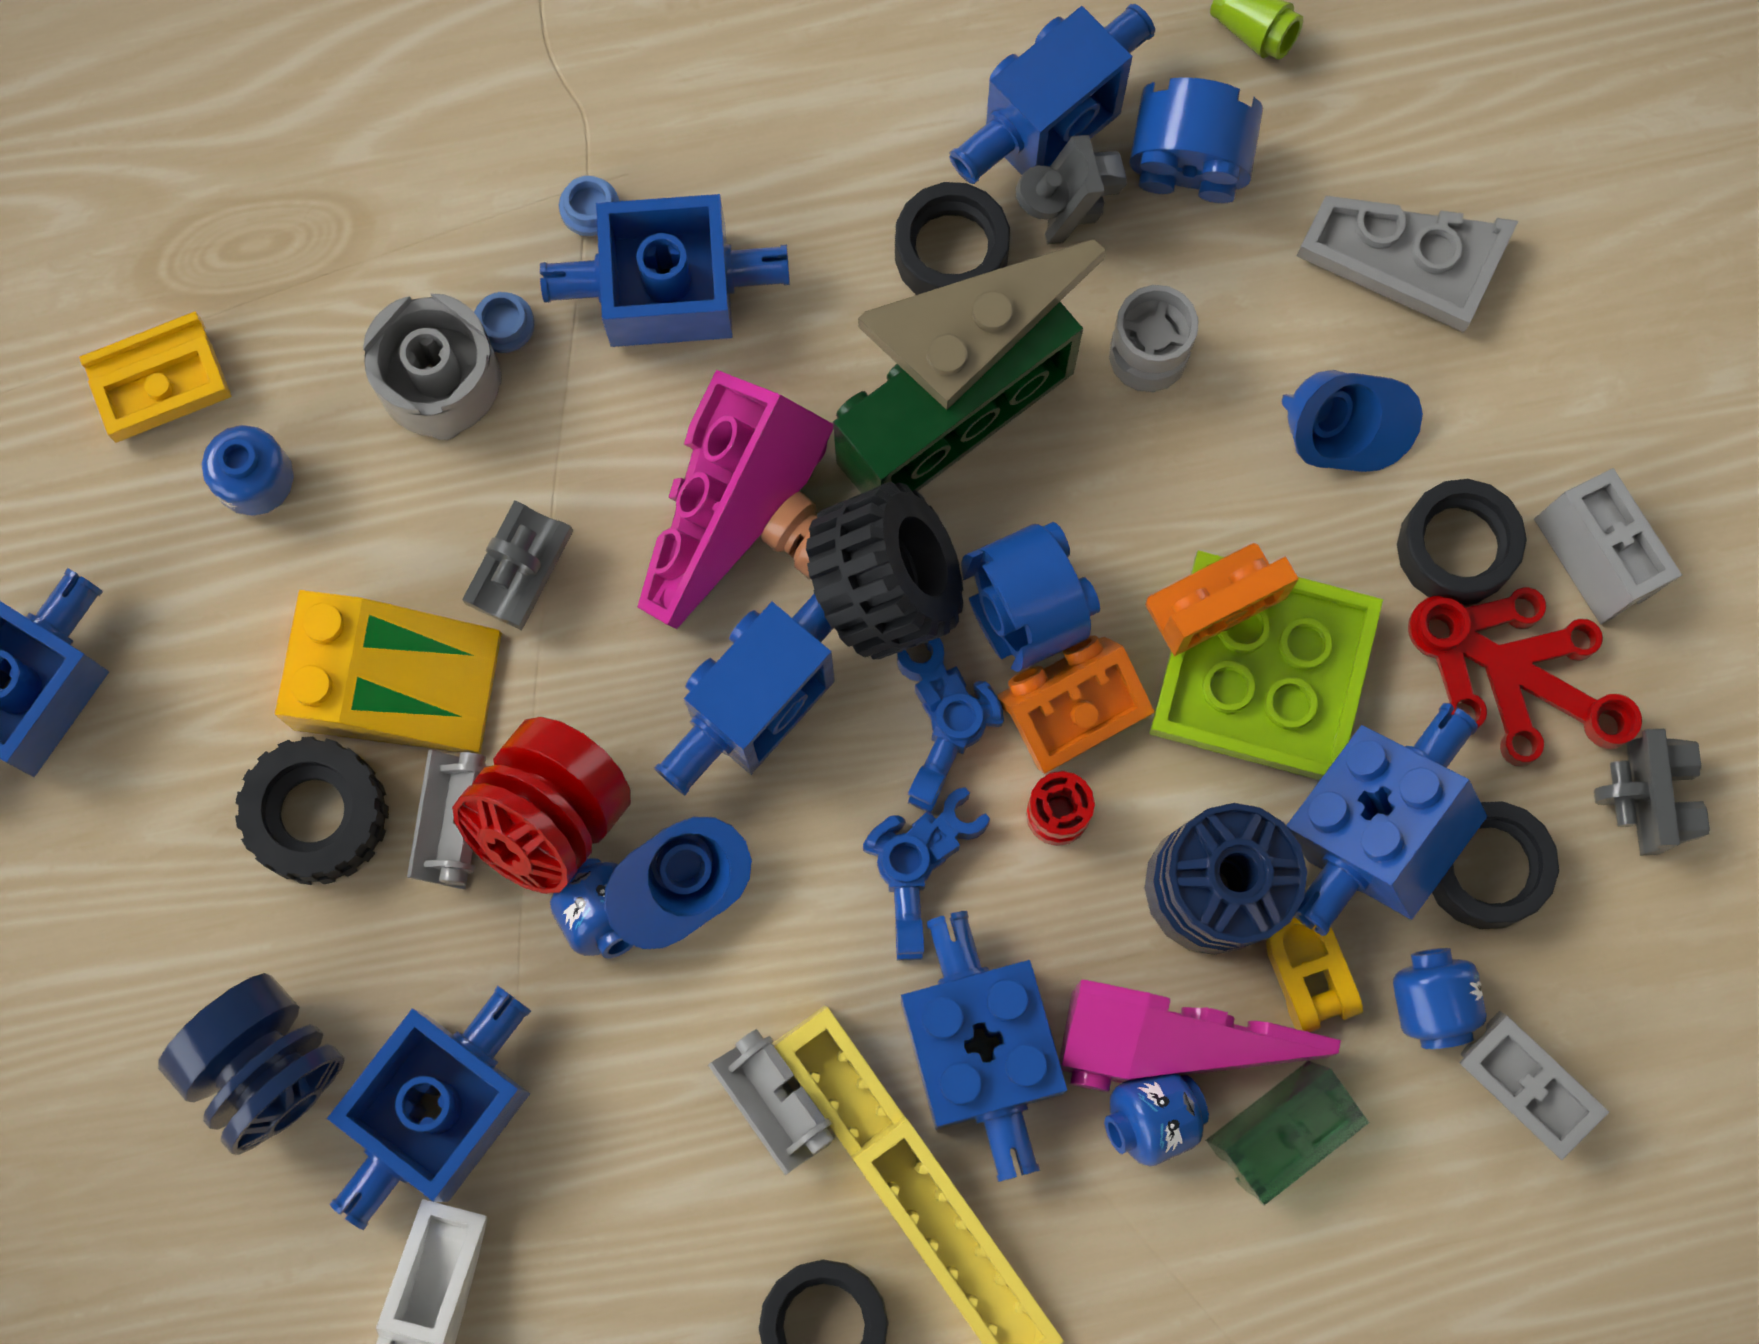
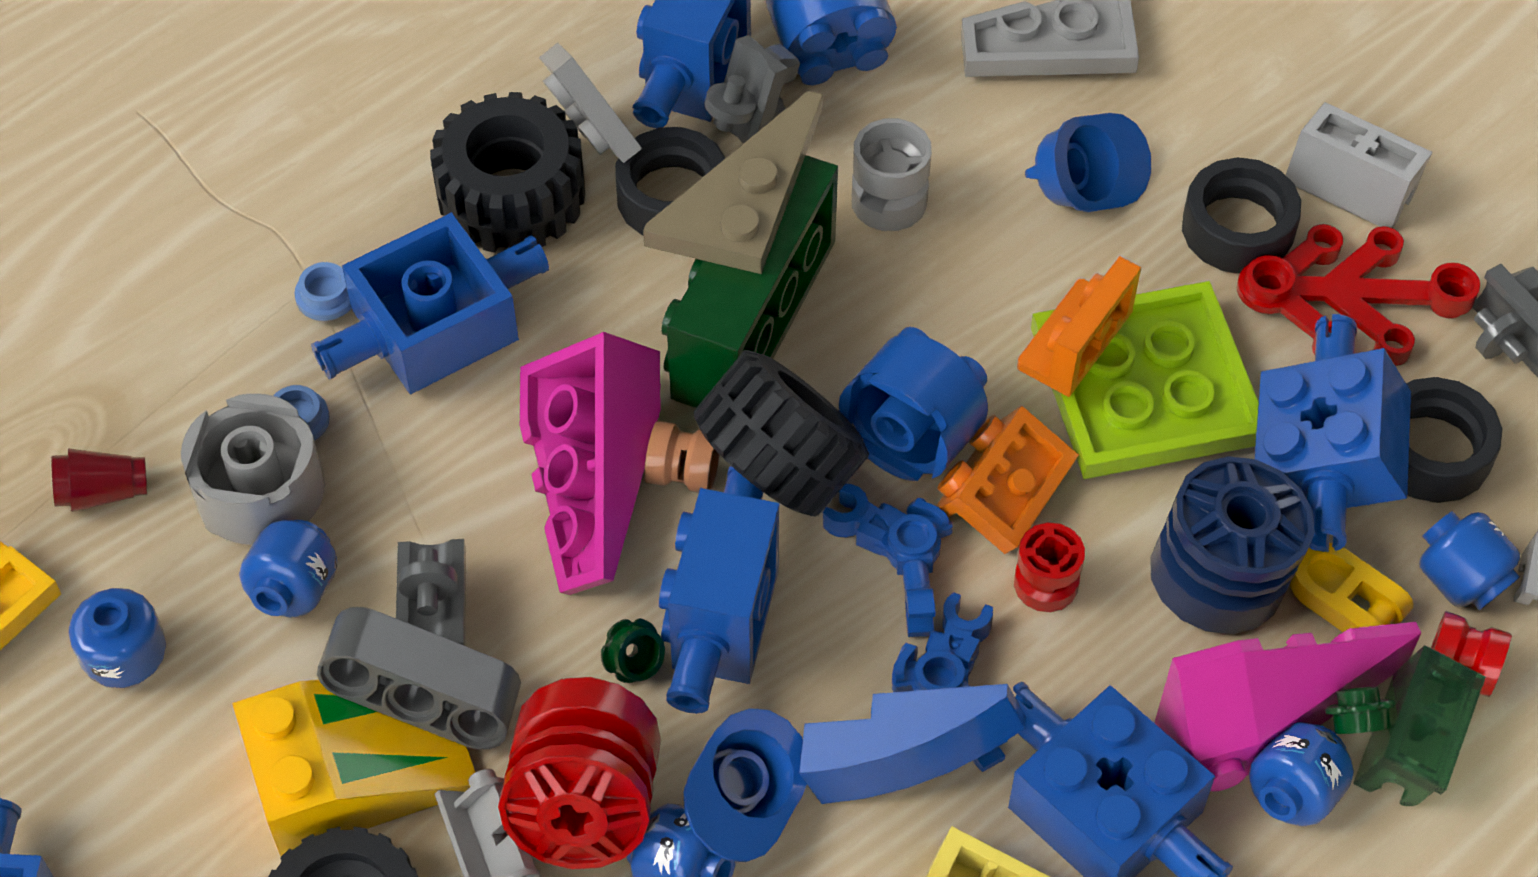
camera: 30 degrees left, 20 degrees down
(305, 301) = (96, 478): none -> dark red cone
(418, 473) = (288, 568): none -> blue head
(465, 641) = (419, 678): none -> dark grey beam
(664, 711) = (646, 654): none -> dark green plate
(802, 118) = (502, 137): none -> black tyre
(830, 912) = (907, 740): none -> slope
(906, 134) = (586, 105): none -> light grey plate
(1235, 1097) = (1360, 711): none -> dark green plate
(1373, 1080) = (1477, 650): none -> red wheel

